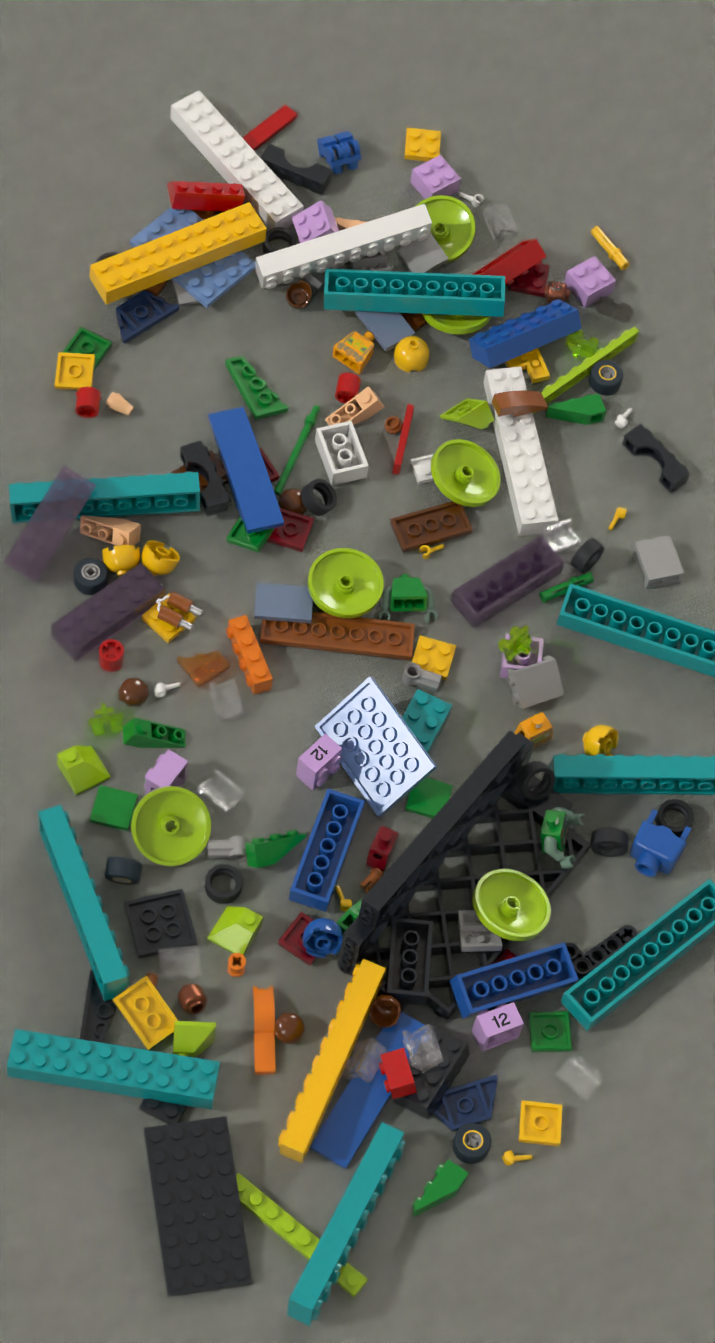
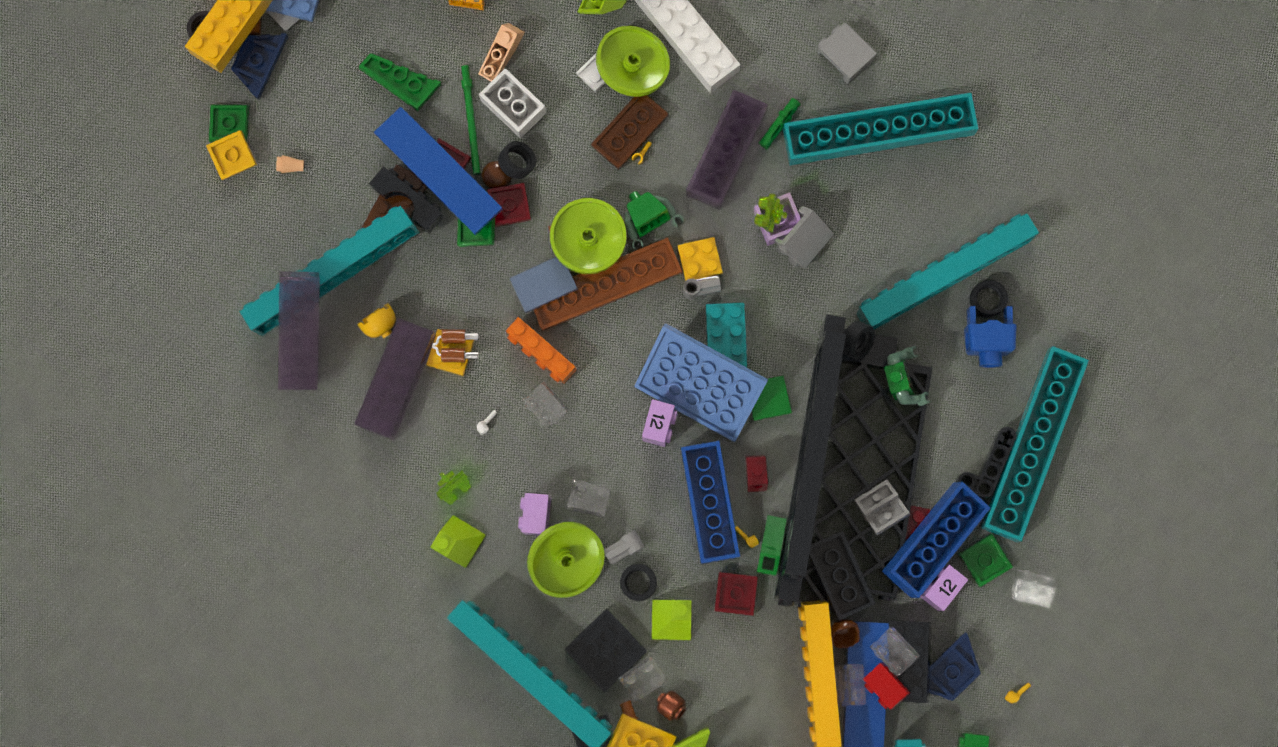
camera: 10 degrees left, 20 degrees up
(87, 402) = (260, 180): red piece -> none
(90, 576) = (366, 355): black wheel -> none
(111, 530) = (356, 296): light nougat slope -> none
(111, 655) = (422, 420): red piece -> none
(113, 808) = (505, 563): green tile -> none
(123, 870) = (547, 622): black wheel -> none
(133, 692) = (460, 443): reddish brown hair -> none
(149, 734) = (501, 475): green slope -> none
(158, 558) = (411, 301): yellow cylinder -> none
(203, 666) = (507, 384): clear orange wing -> none
(236, 971) = (688, 647): orange bush -> none
(264, 1031) = (746, 697): orange piece -> none
(269, 851) = (662, 528): green slope -> none
(289, 1028) = (767, 685): reddish brown hair -> none
(322, 937) = (751, 590): blue cylinder -> none
(347, 387) = (482, 32): red piece -> none
(371, 879) = (762, 505): dark orange pin -> none
(393, 424) = (542, 46): dark orange plate -> none
(403, 439) = (559, 56): red tile -> none
(474, 1136) = (975, 703): black wheel -> none
(511, 904) = (898, 471): lime dish -> none
(536, 729) = (825, 287): light orange torso -> none
(540, 1123) = (1022, 651): yellow plate -> none
(560, 536) = (750, 78): clear bracket -> none
(587, 555) = (783, 83): black tyre -> none
(600, 740) = (887, 263): yellow cylinder -> none
(609, 842) = (947, 356): black tyre -> none
(620, 513) = (787, 21): yellow hand -> none

